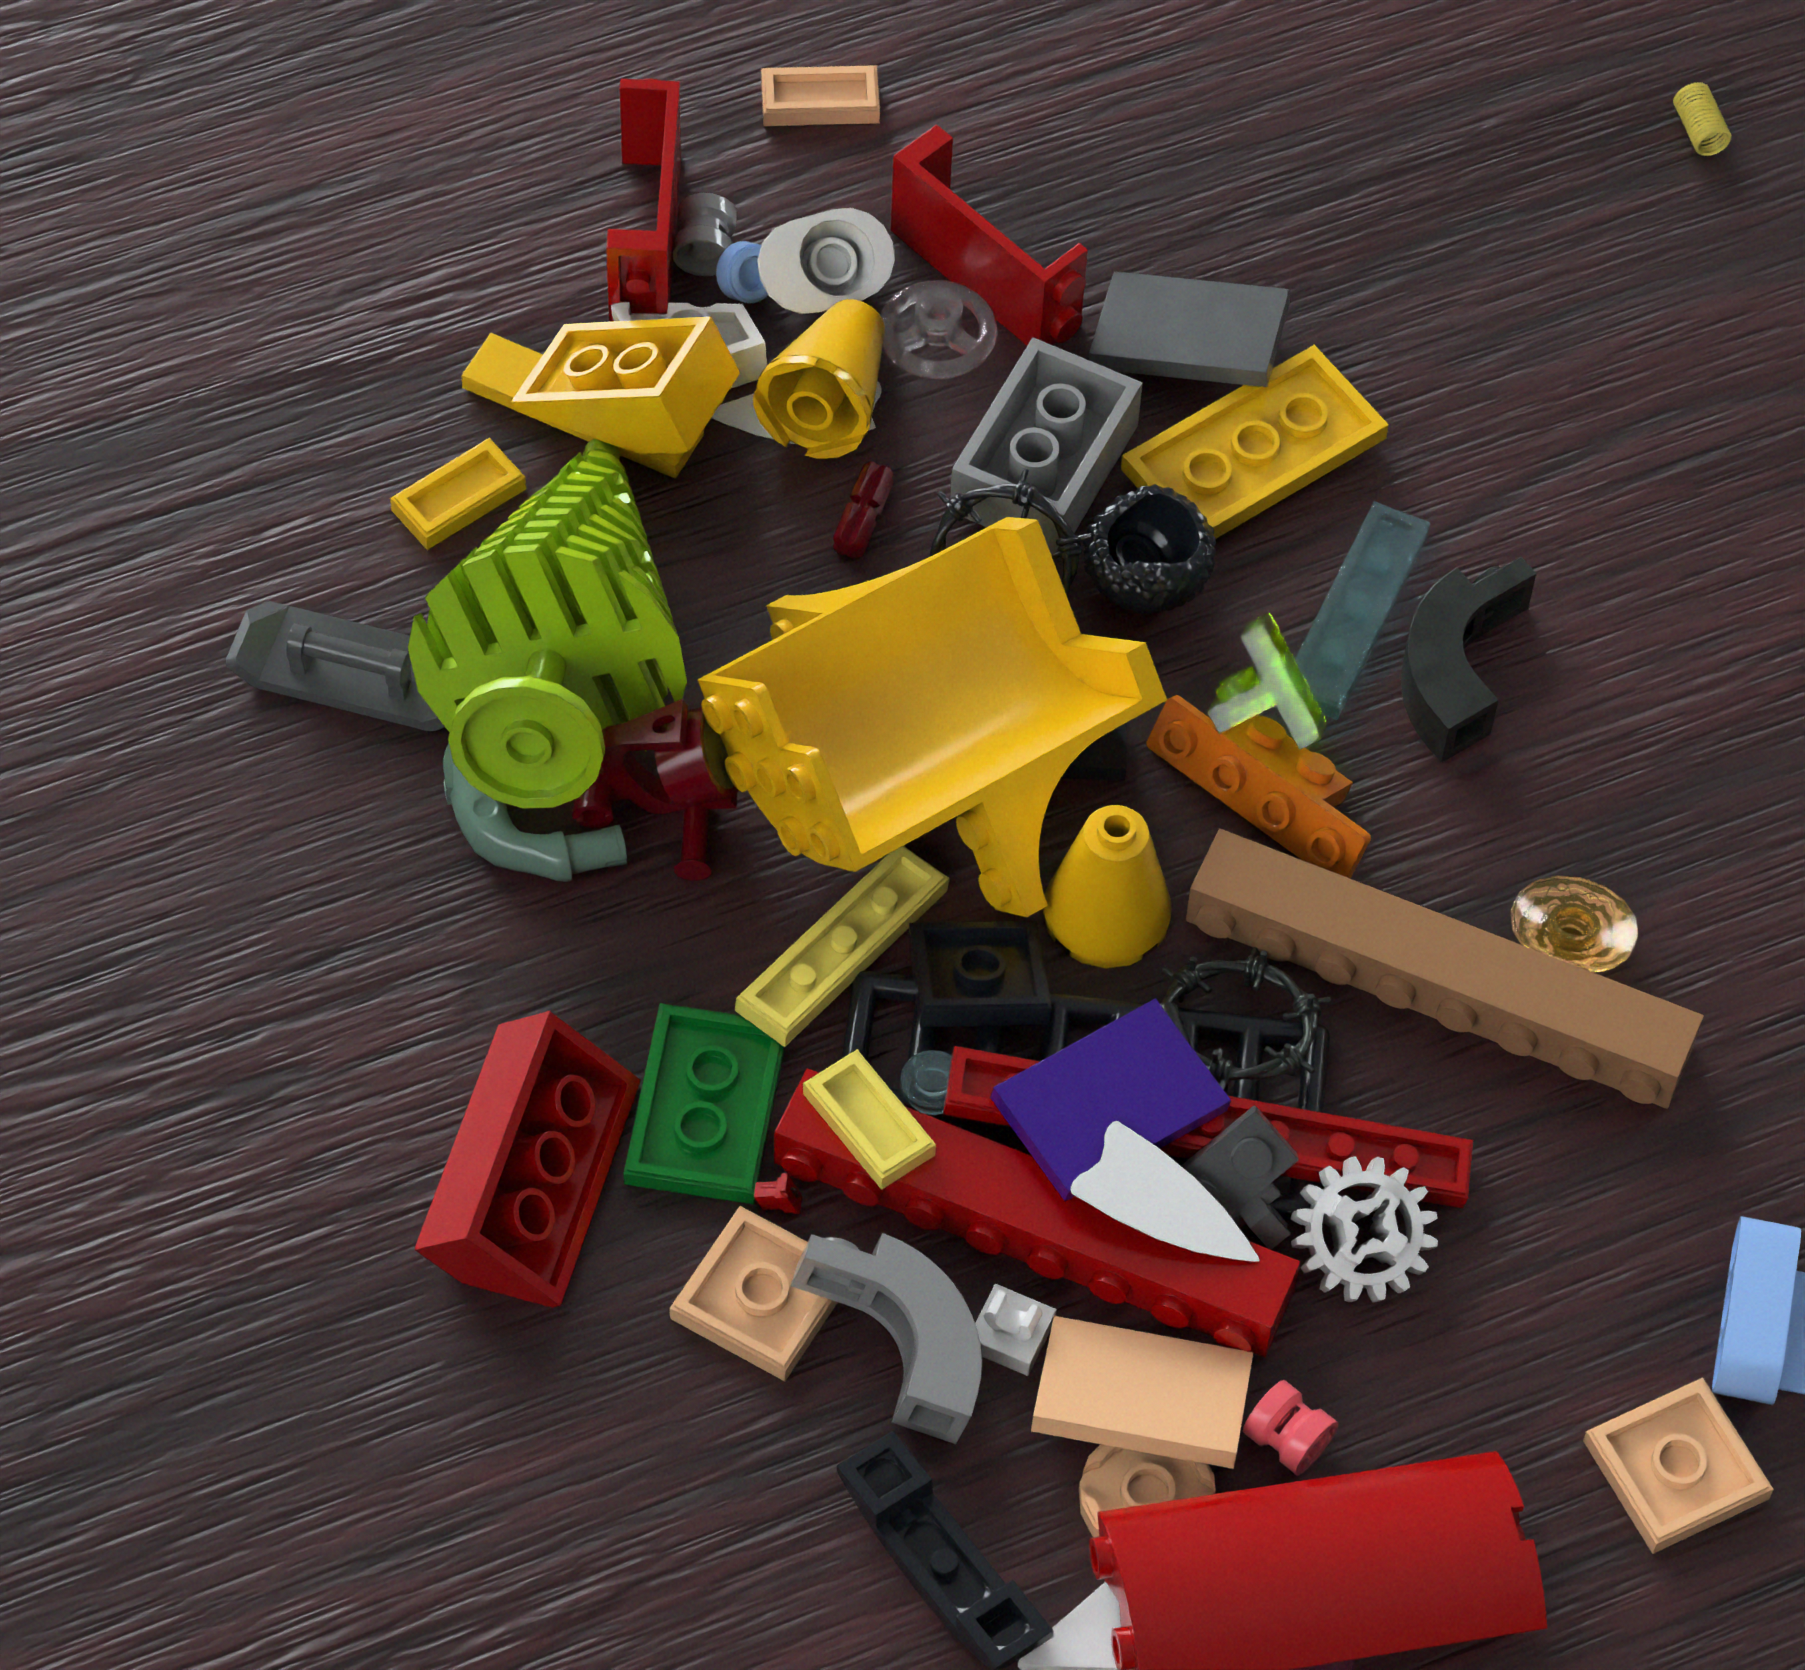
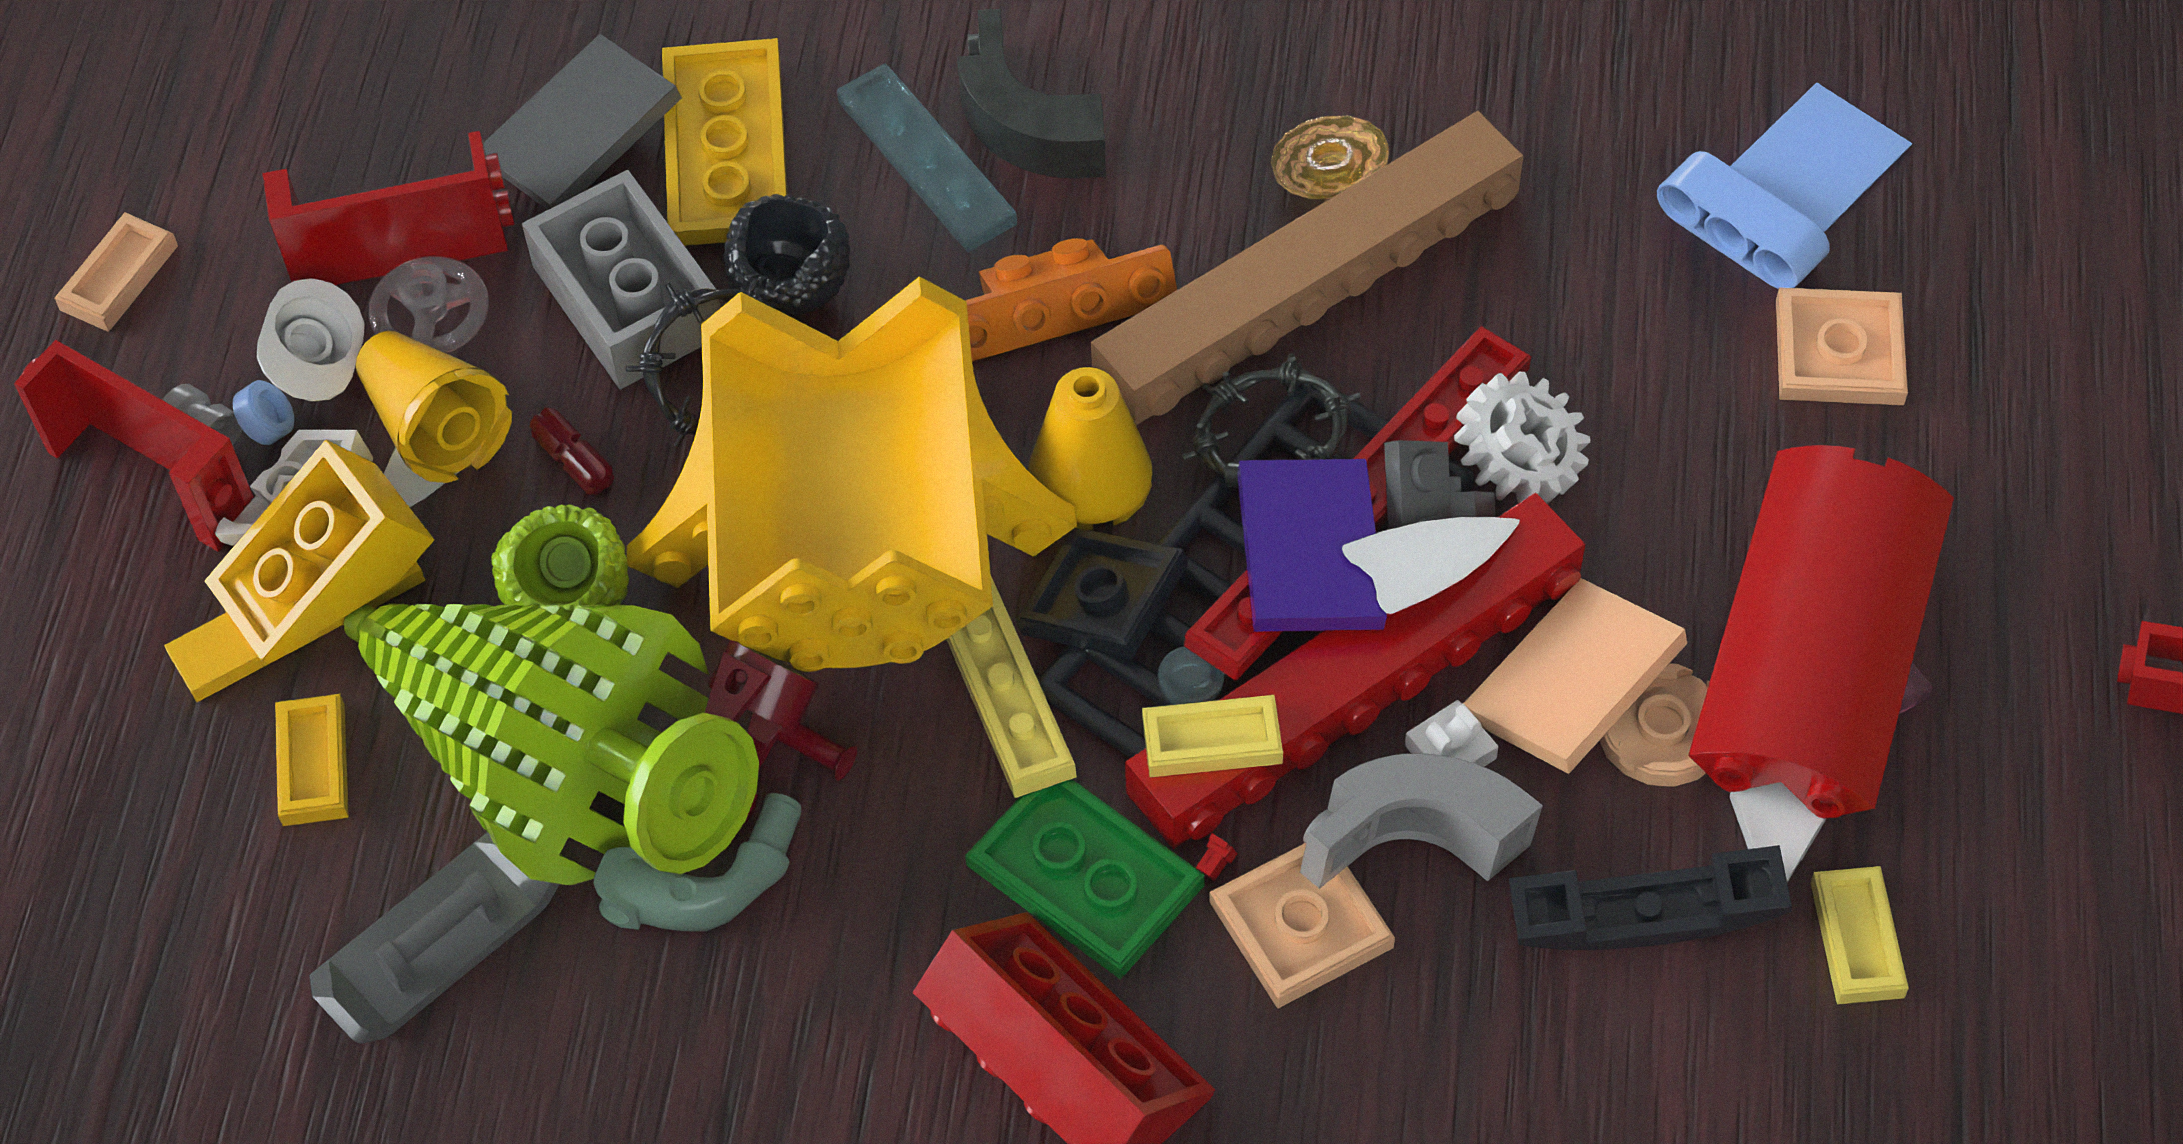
camera: 55 degrees left, 0 degrees up
(725, 559) = (561, 560): none -> lime hair
(1276, 684) = (985, 236): clear neon green bracket -> none
(1290, 1427) = (1670, 583): coral wheel -> none

